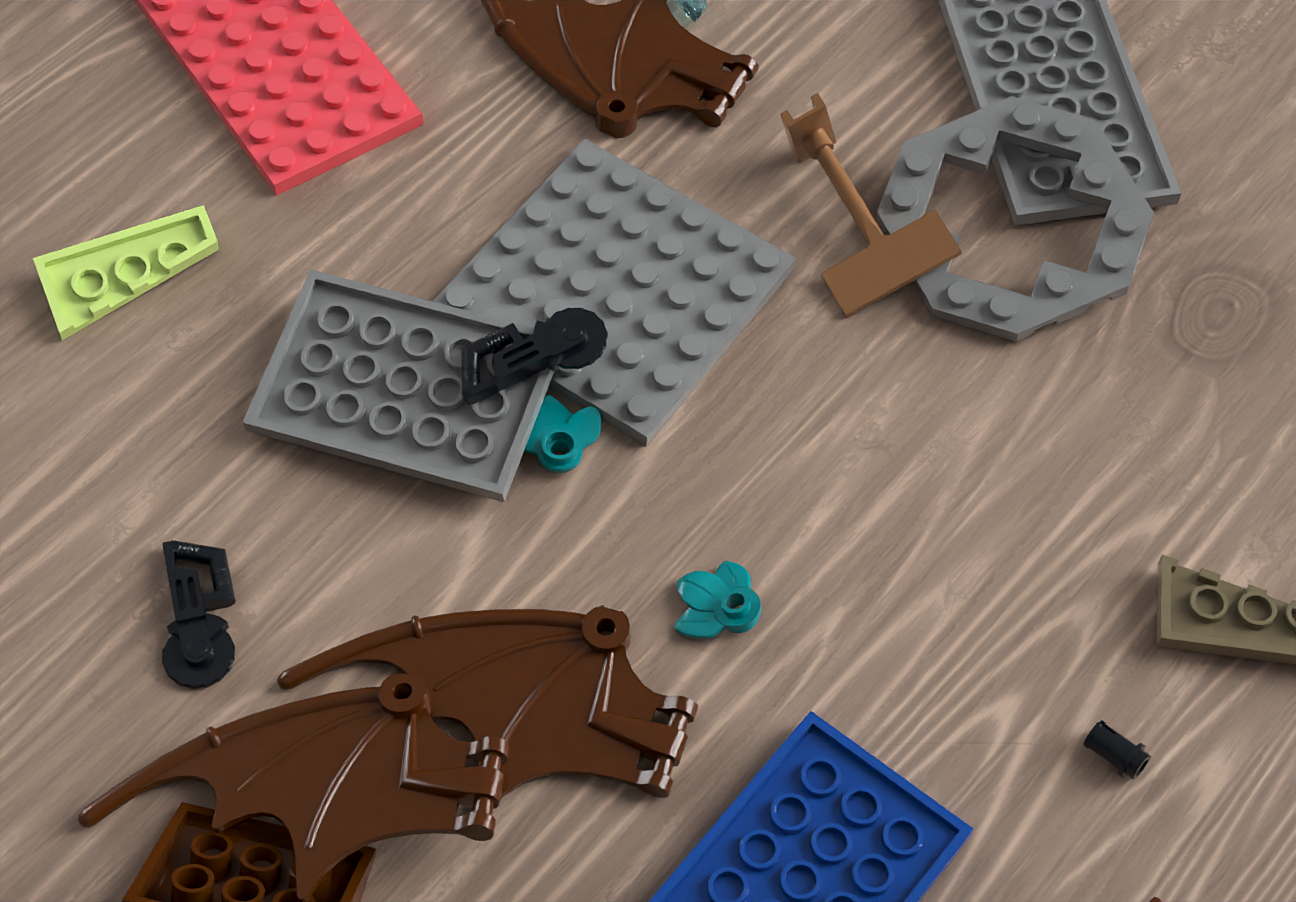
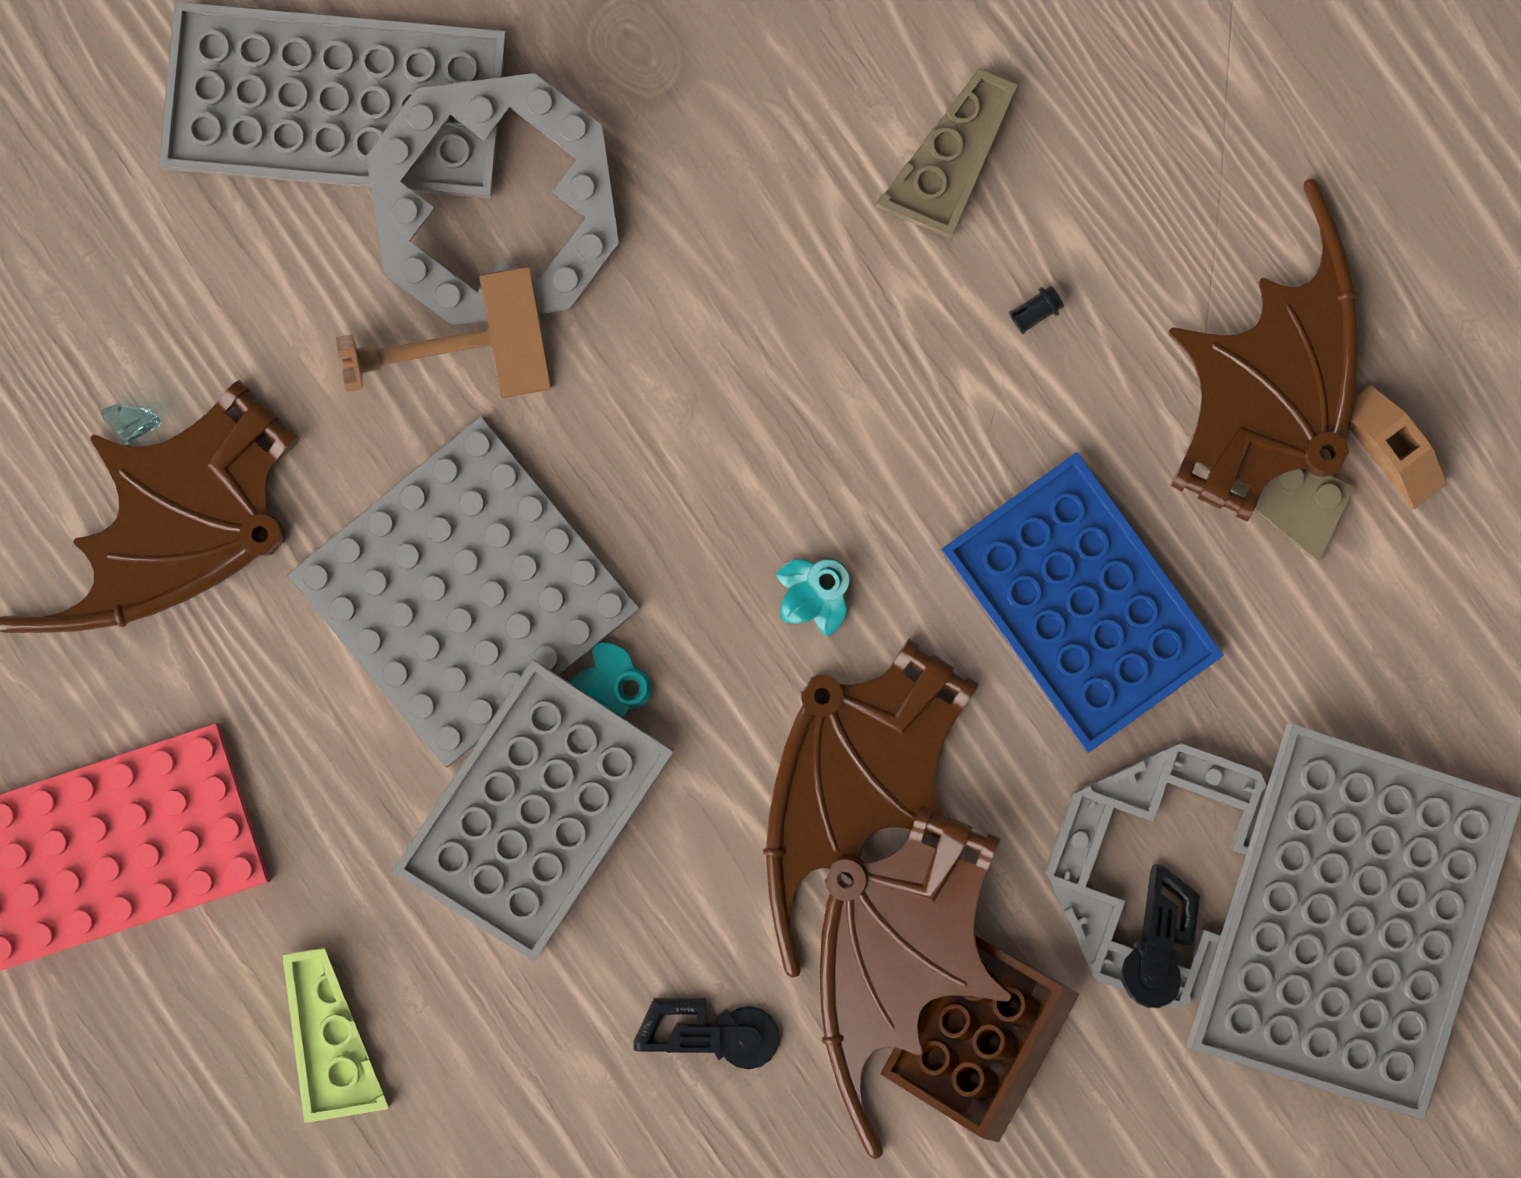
camera: 75 degrees left, 30 degrees up
(566, 339) = (541, 657): black piece -> none

